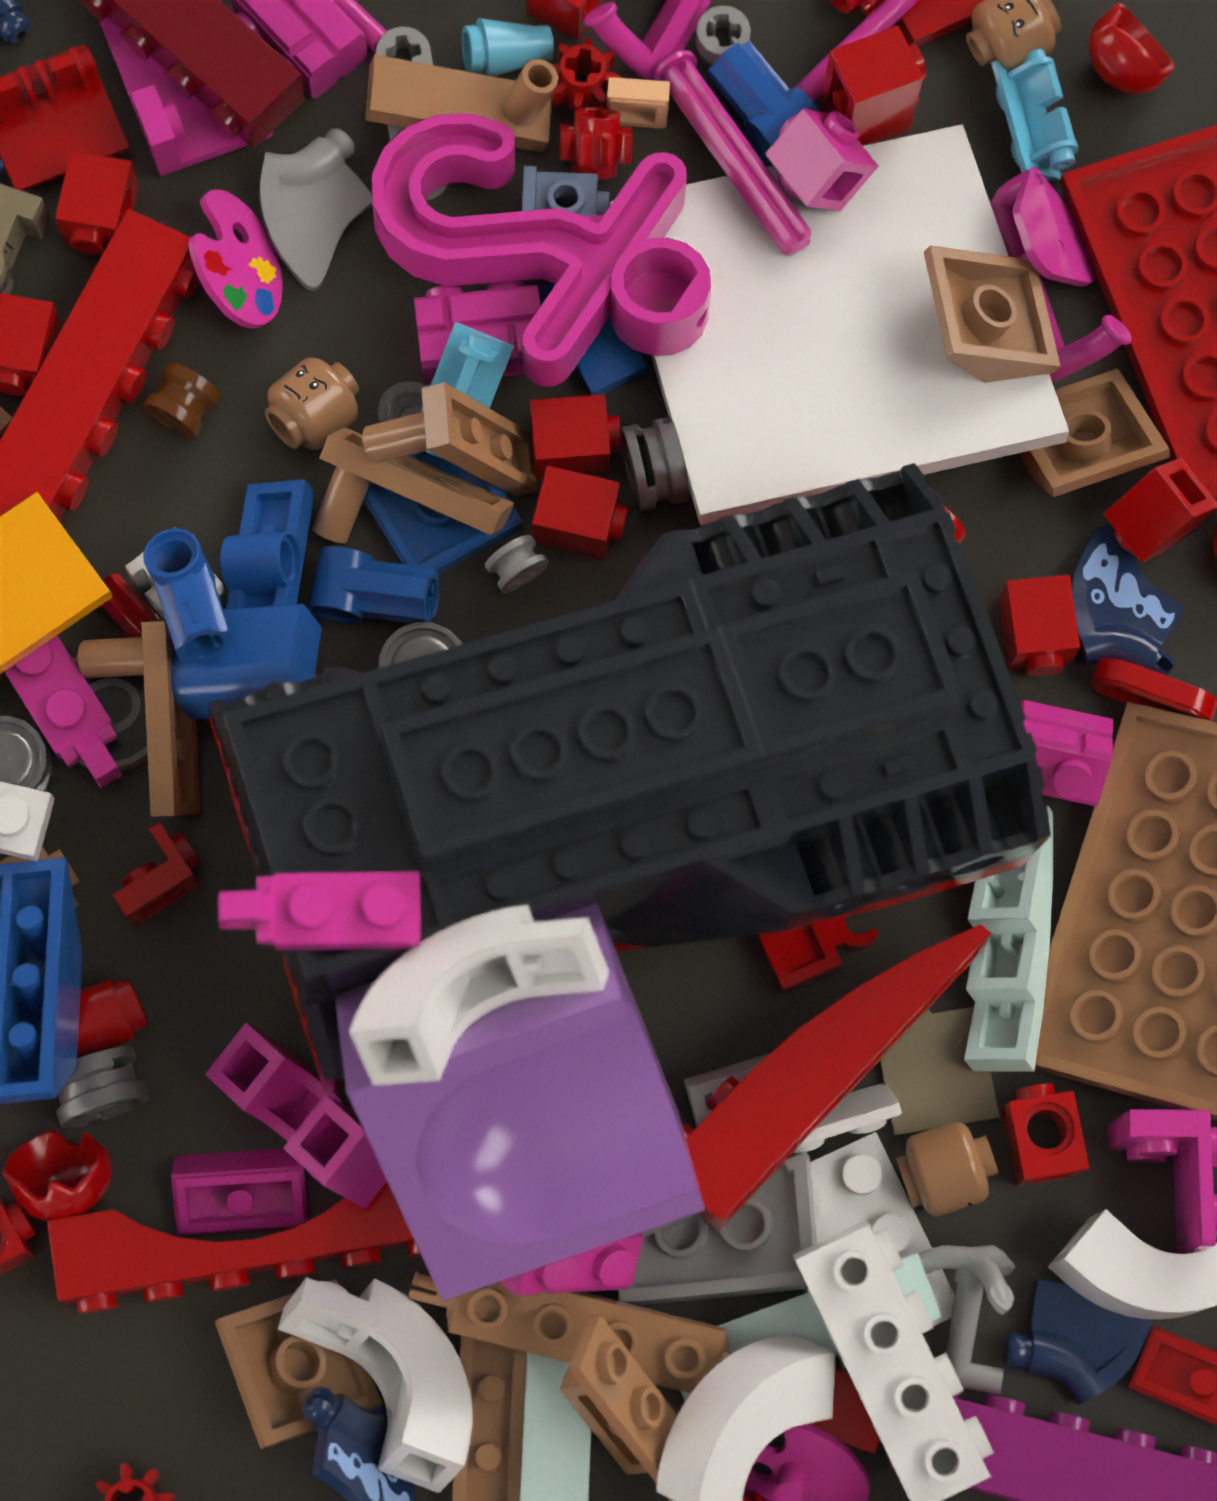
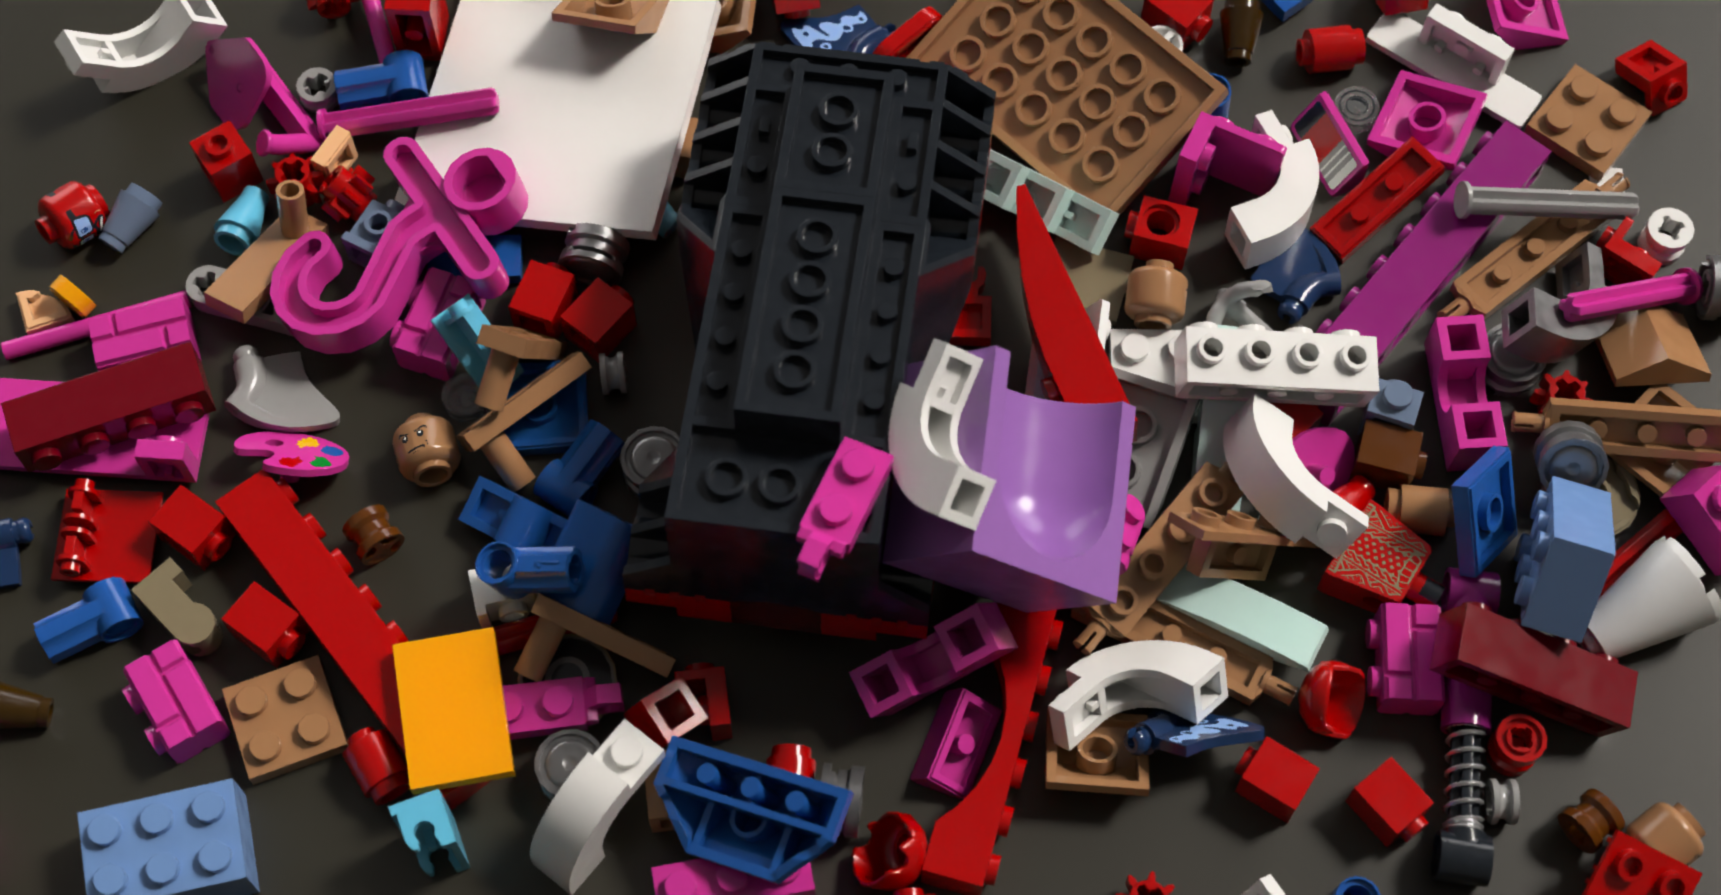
camera: 60 degrees left, 10 degrees down
(105, 838) = (667, 713): none -> red brick
(821, 159) = (446, 58): dark pink brick -> none

